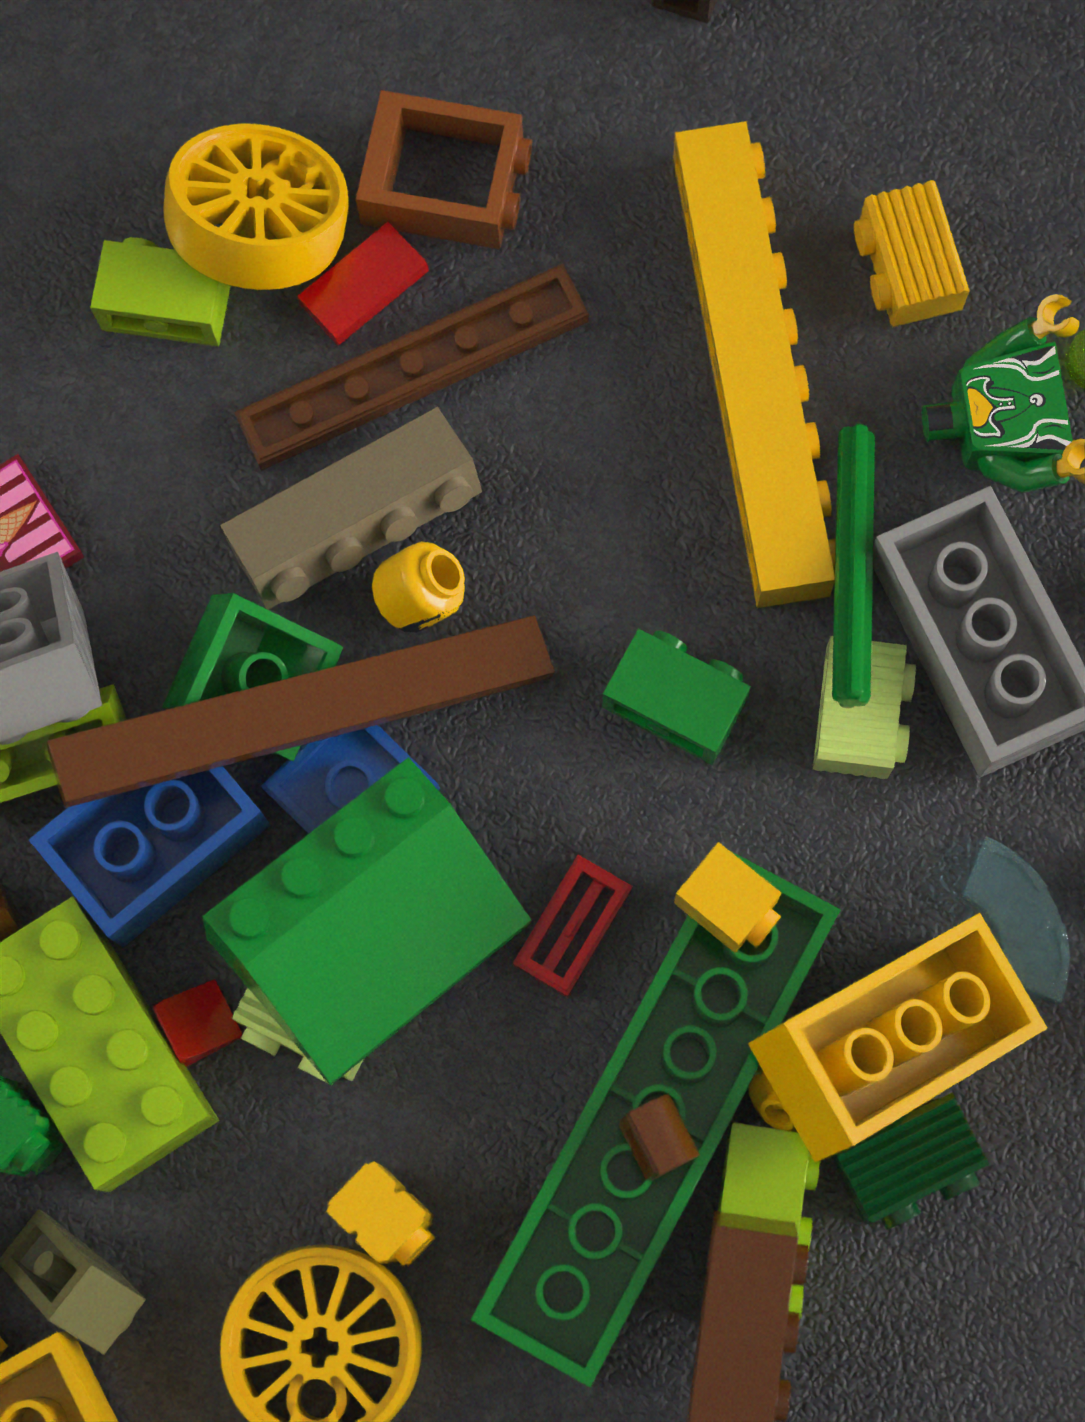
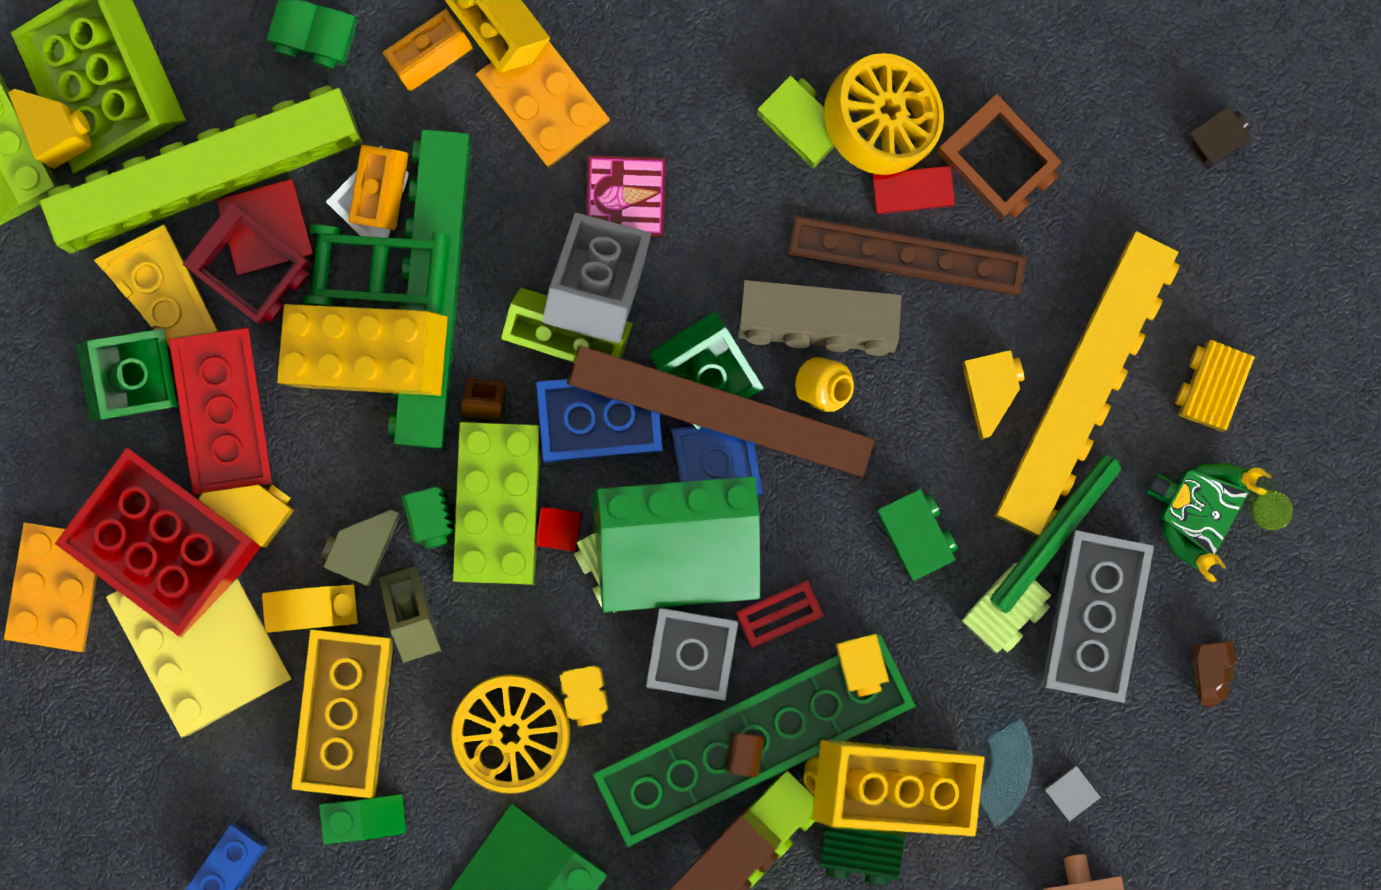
camera: 30 degrees right, 10 degrees up
(492, 1057) = (692, 654): none -> light grey brick
(635, 447) = (991, 388): none -> yellow slope

